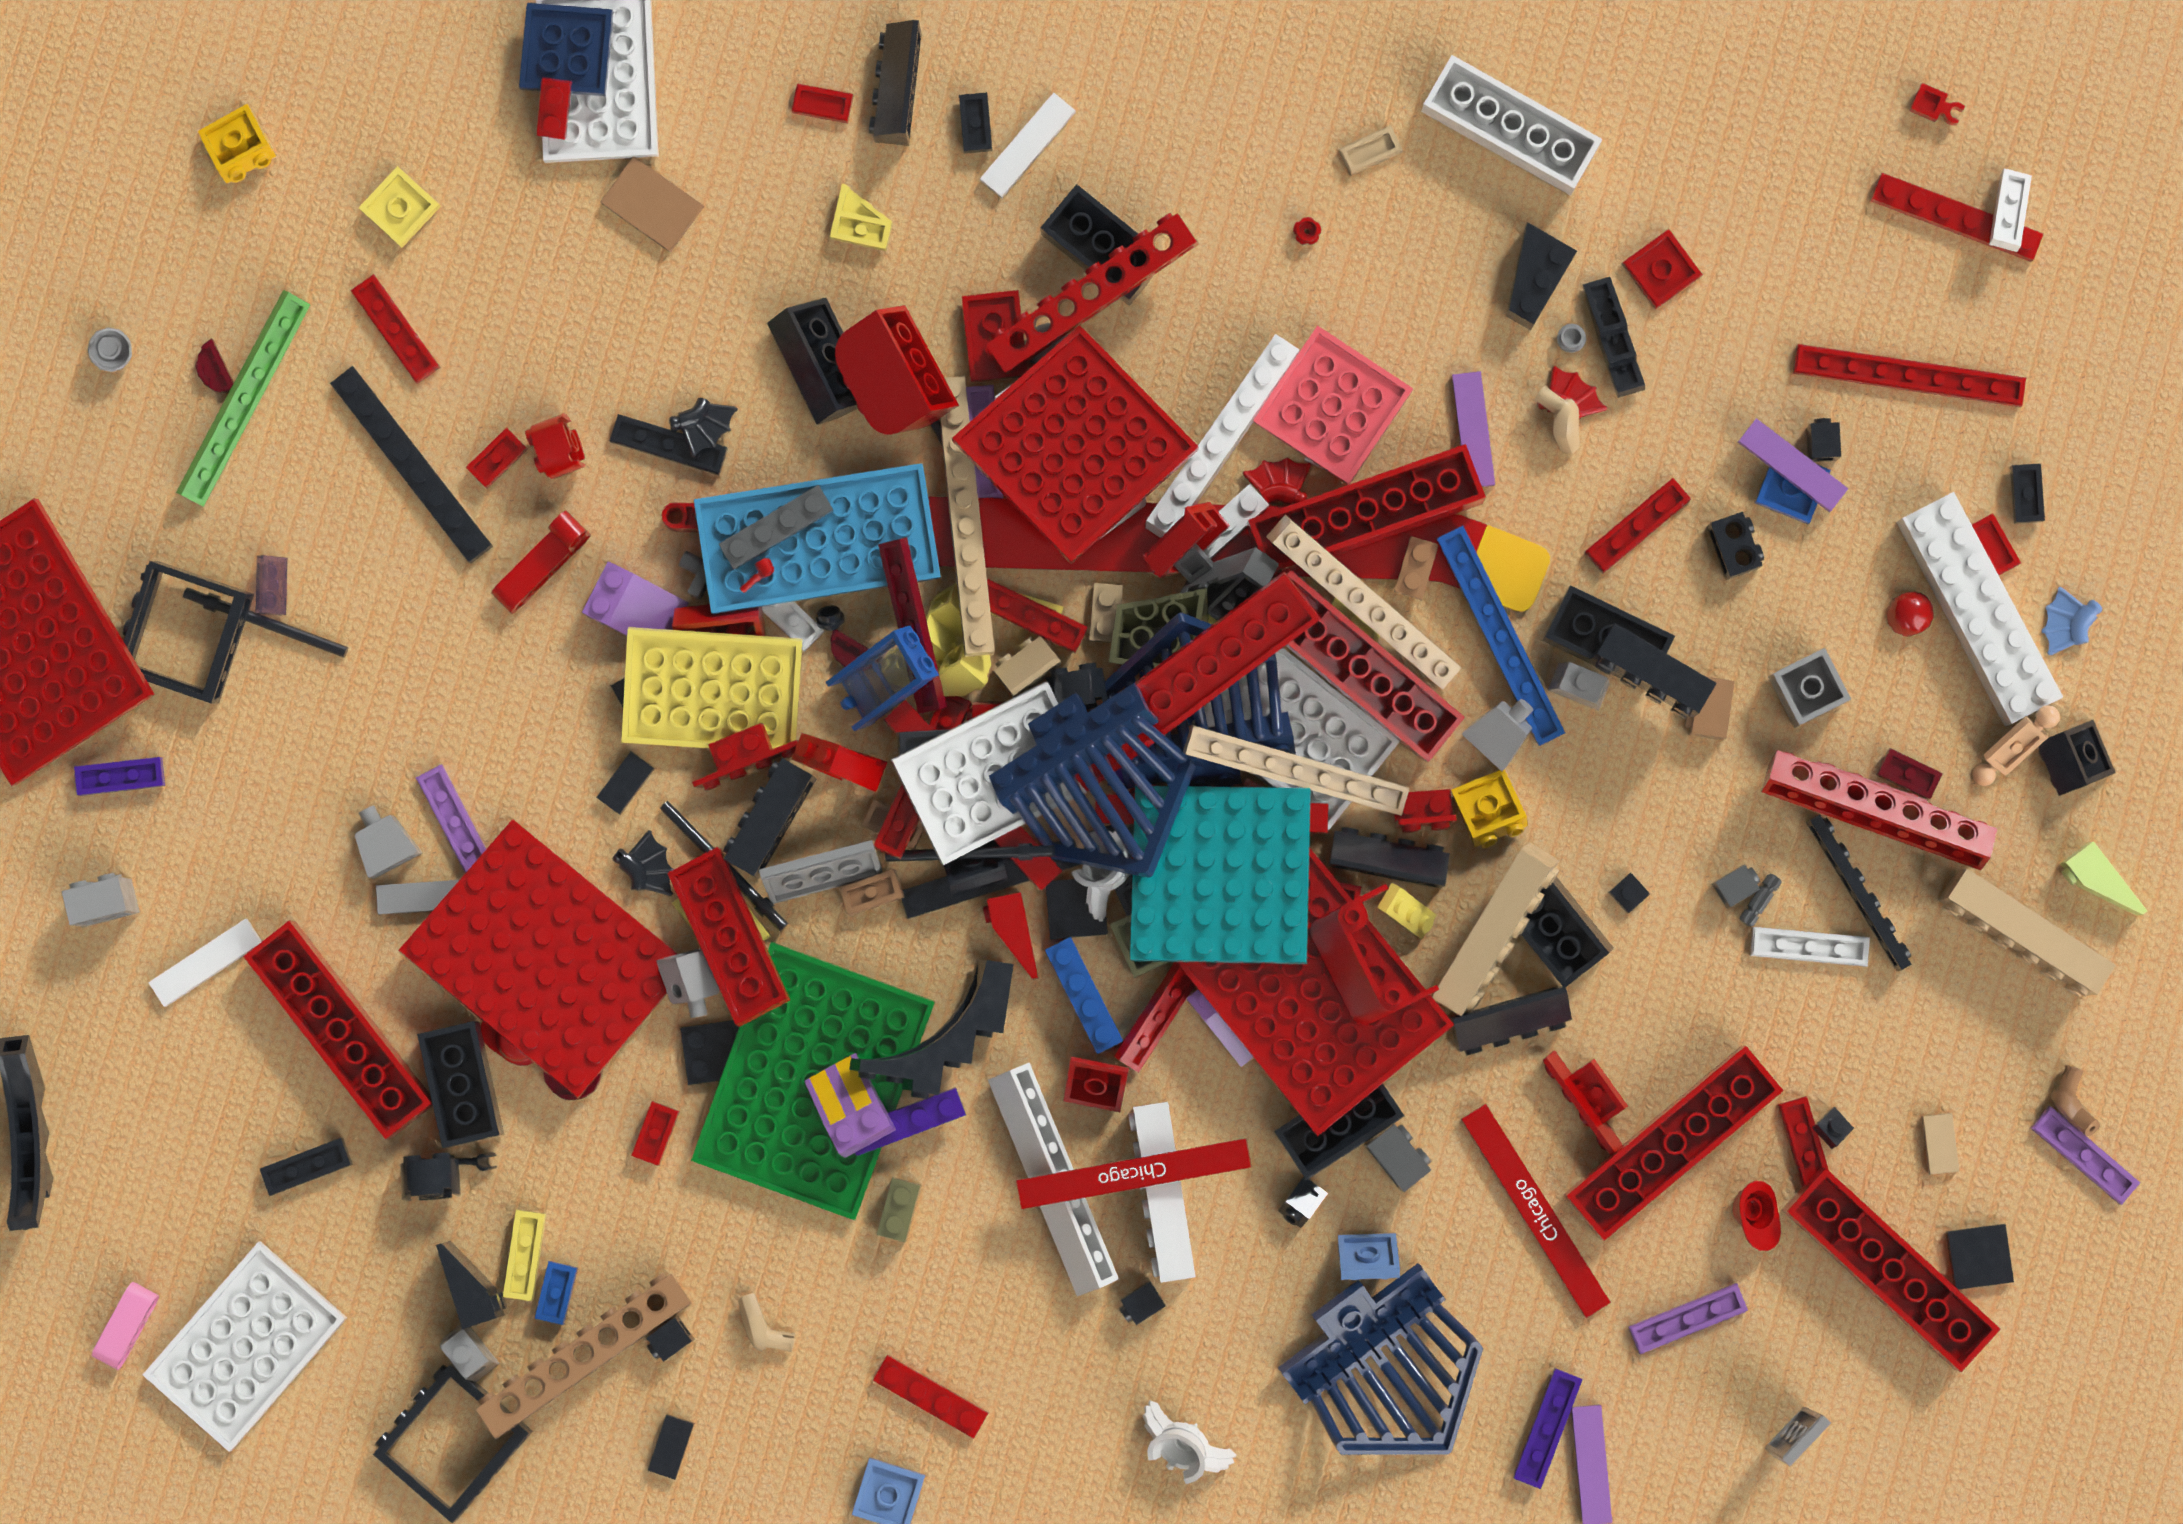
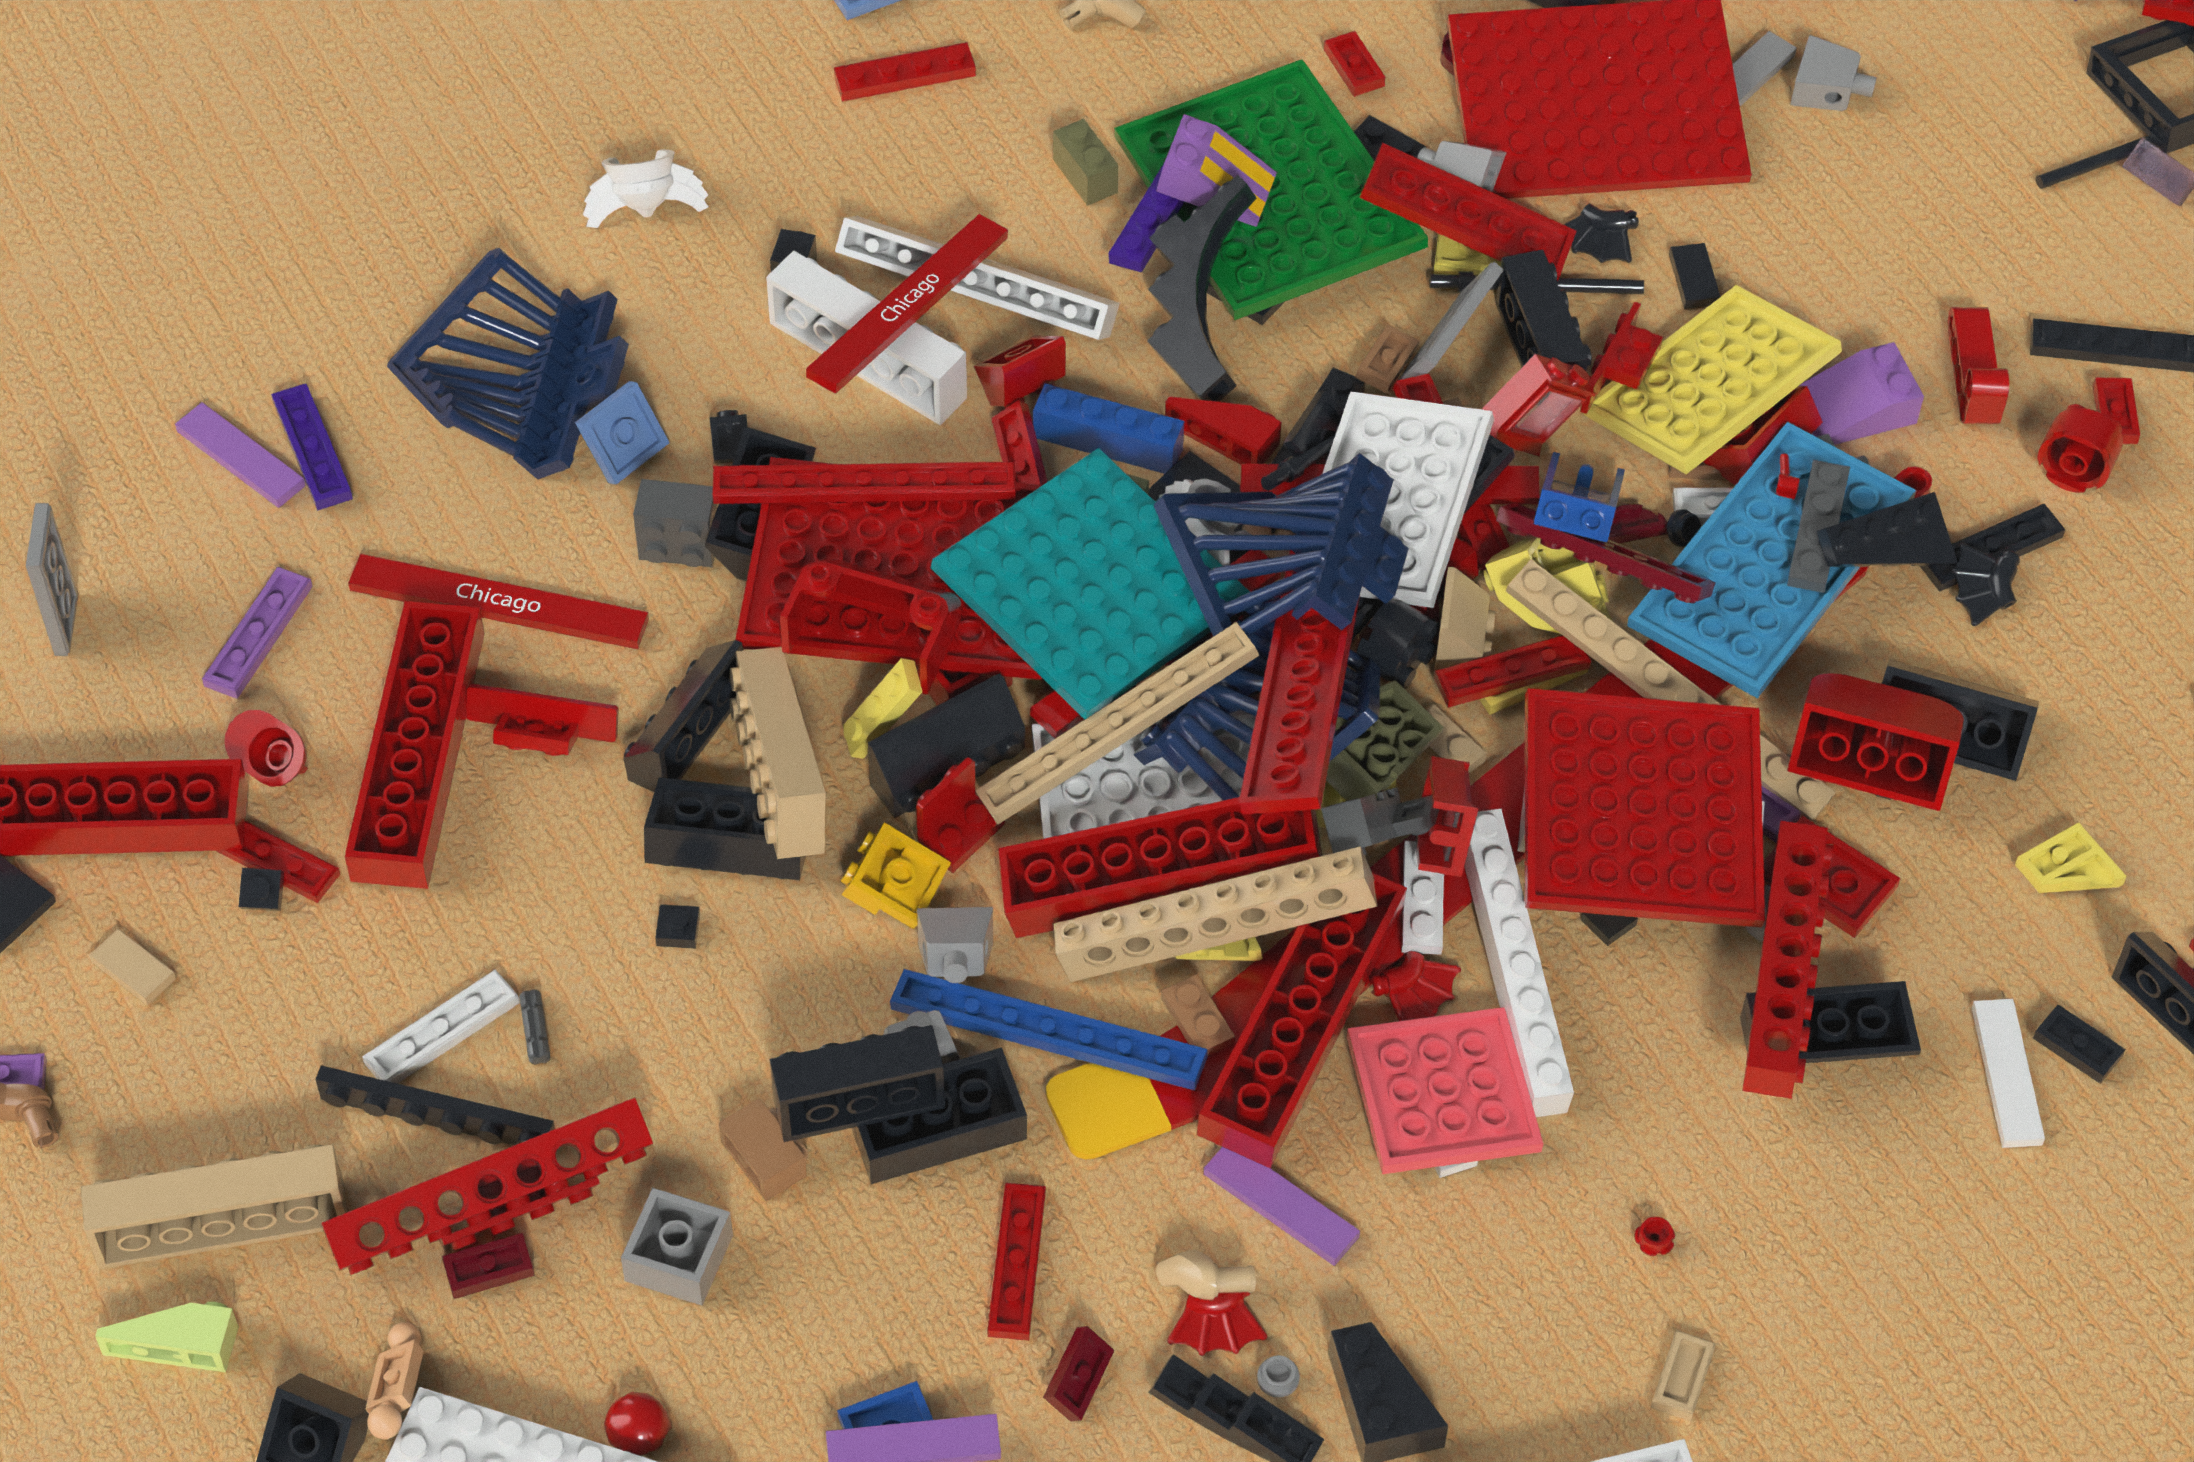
camera: 125 degrees right, 30 degrees down
(452, 816) = (1803, 144): medium lavender tile -> none
(740, 482) = (1891, 536): none -> black wing
(1284, 1063) = (864, 482): none -> red tile
(1670, 430) = (1078, 1373): none -> dark red plate
(1727, 547) = (901, 1312): black brick -> none
(1737, 885) = (572, 1012): dark grey brick -> none

